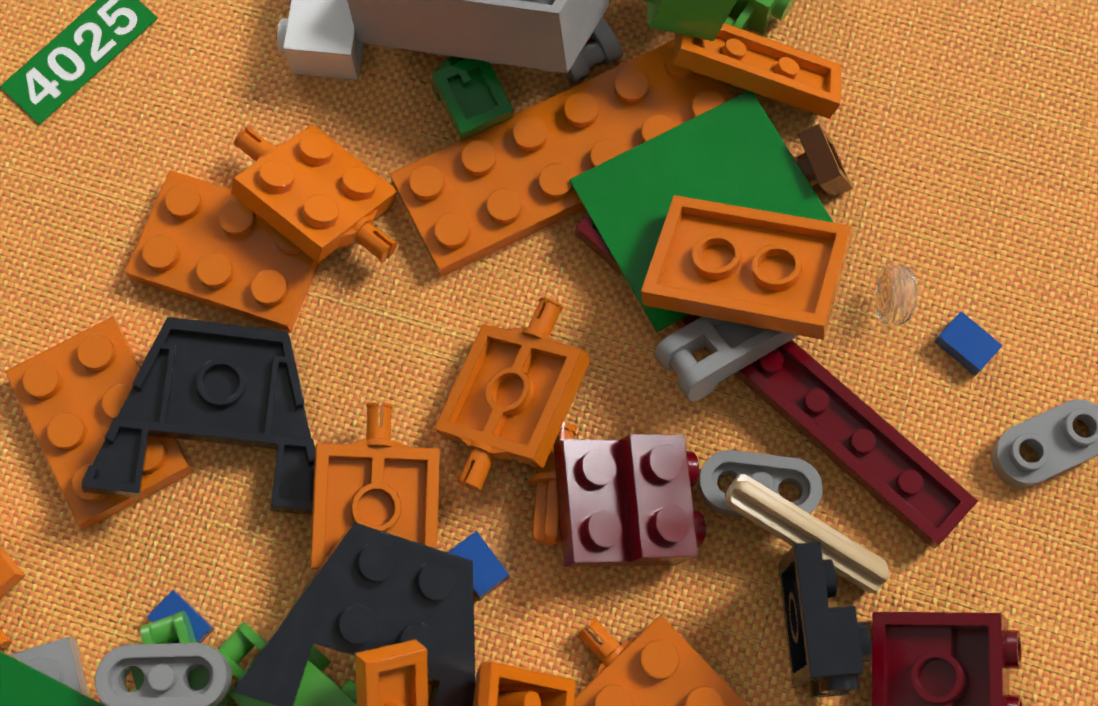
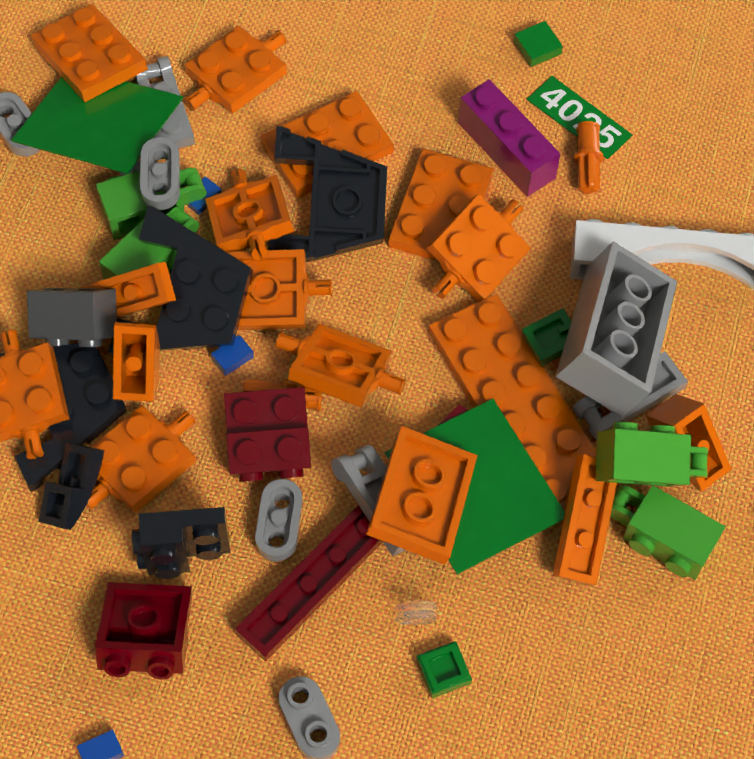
camera: 85 degrees right, 10 degrees down
(119, 143) = (508, 137): none -> magenta brick
(158, 38) = (588, 157): none -> orange axle
(237, 536) = (249, 214): none -> orange plate
(798, 526) = (242, 543): tan axle -> none
(822, 163) = (515, 567): reddish brown plate -> none
(966, 264) = (444, 669): none -> green tile
(968, 343) = (383, 666): blue piece -> none

